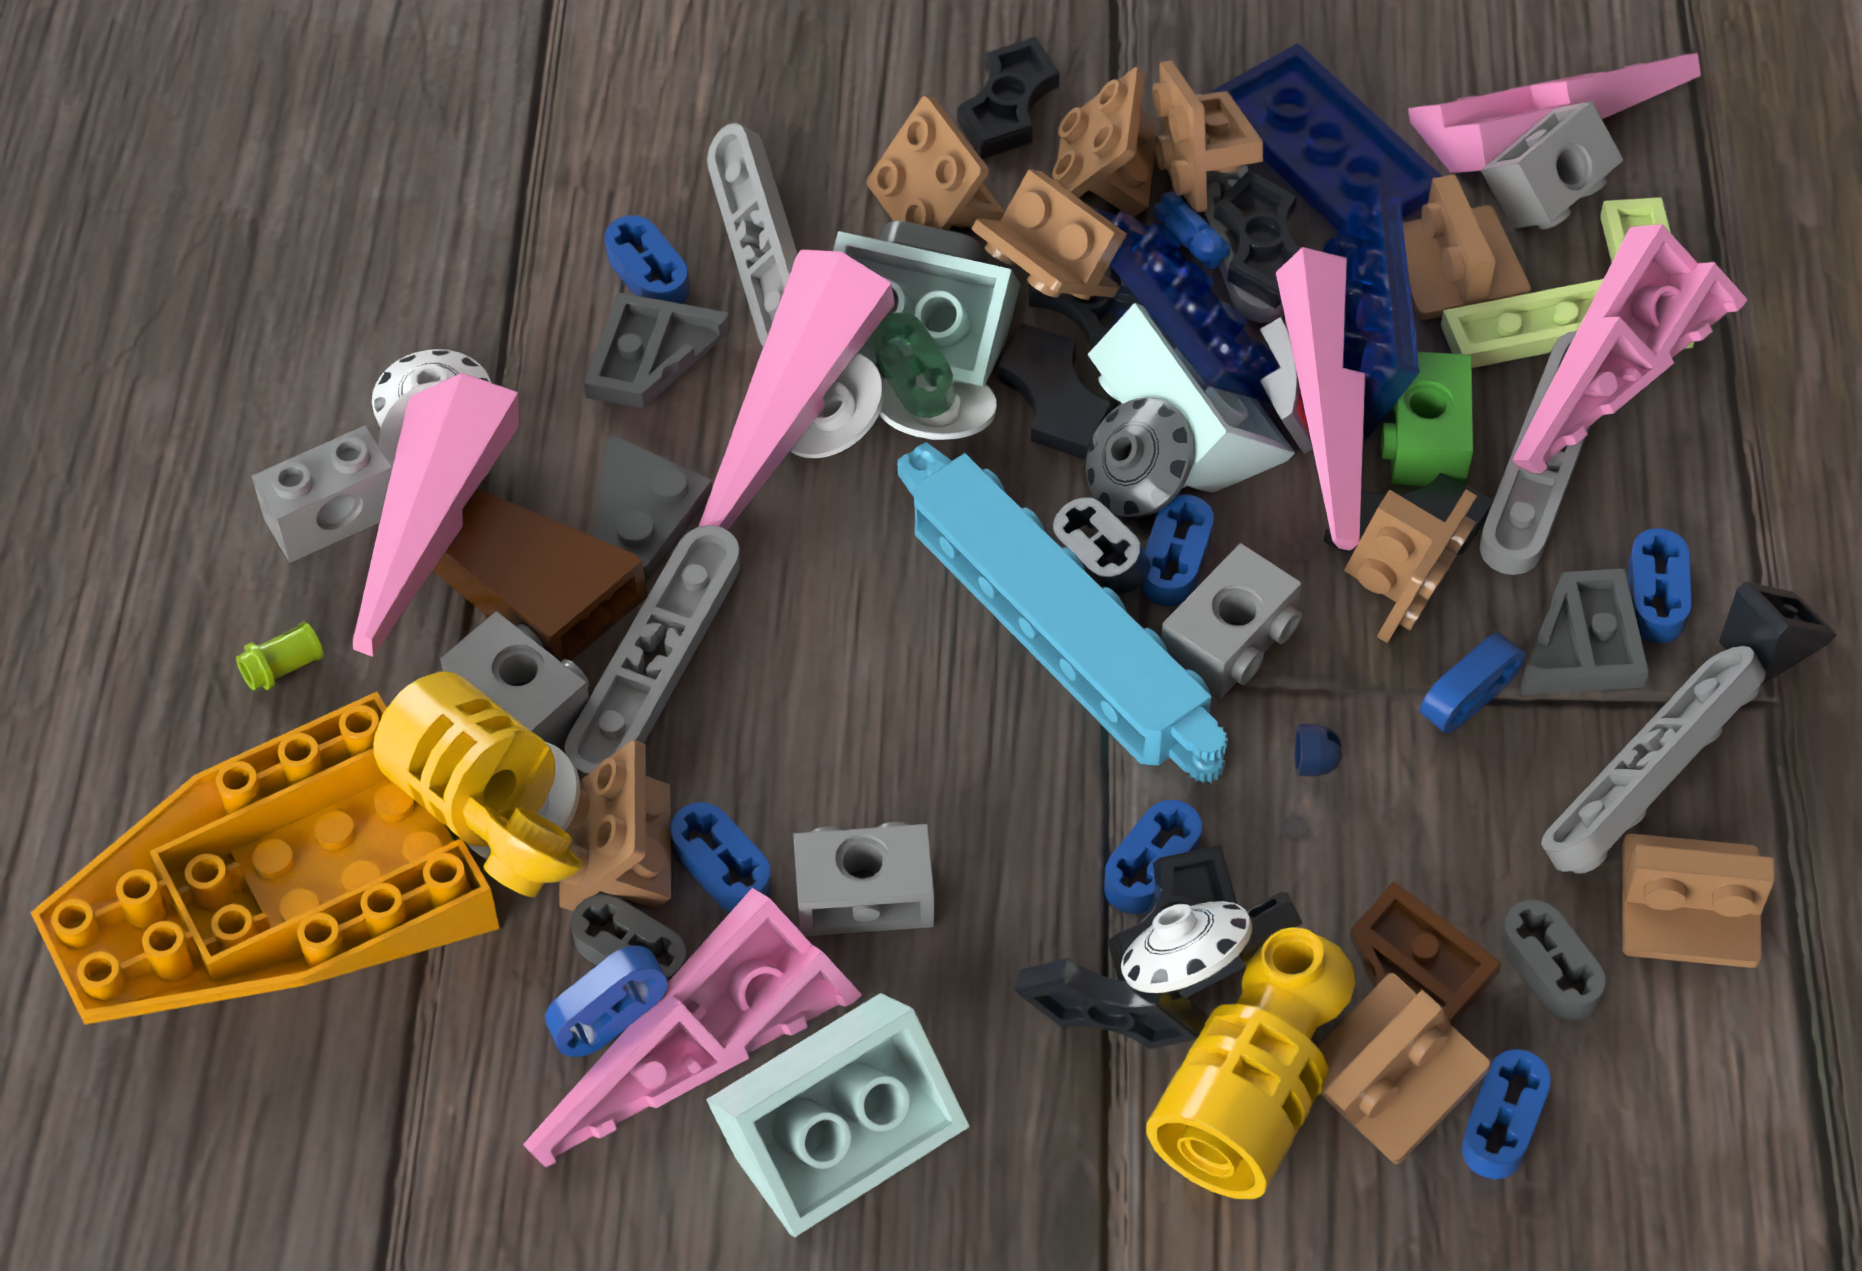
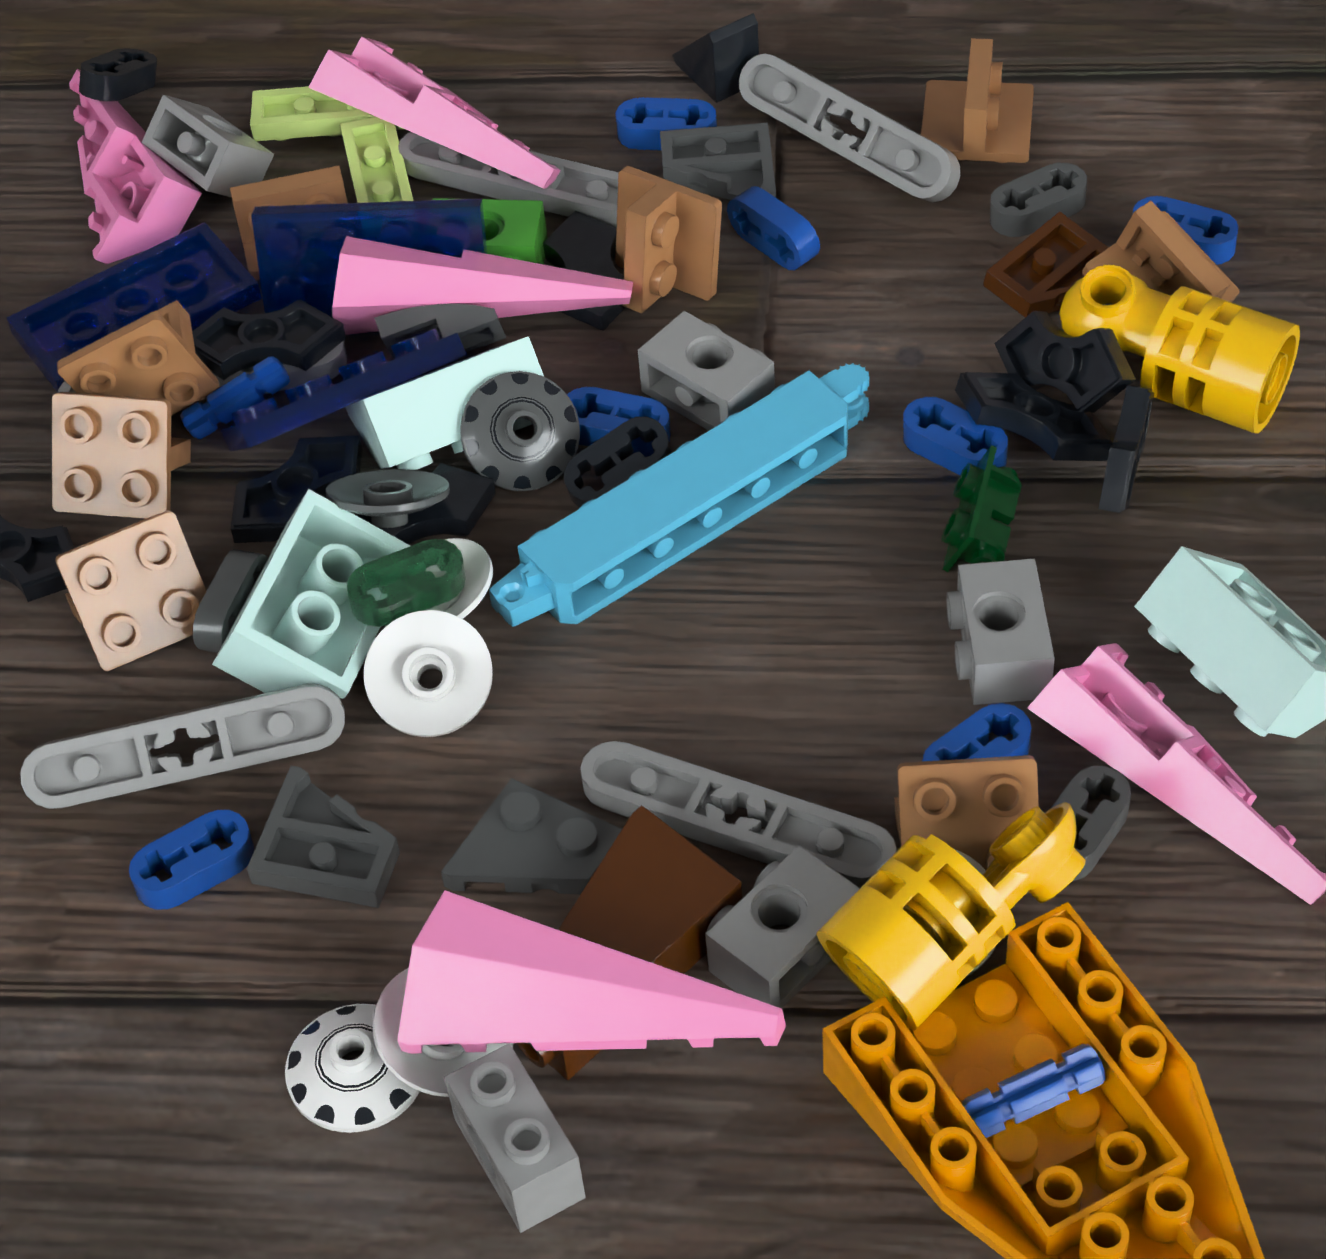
camera: 85 degrees left, 5 degrees down
(279, 656) = (747, 1189): lime pin -> none
(300, 854) = (1035, 1089): none -> blue axle
(605, 1001) = (1168, 817): blue beam -> none
(816, 331) = (366, 652): bright pink wedge -> none
(1008, 864) = (983, 495): none -> dark green hinge
(1039, 346) = (388, 494): none -> dark grey dish
(1054, 239) = (264, 461): medium nougat bracket -> none
(1186, 946) = (1108, 385): white dish -> none
(1316, 750) = (830, 334): dark blue hinge -> none
(1676, 82) = (117, 74): none -> black beam

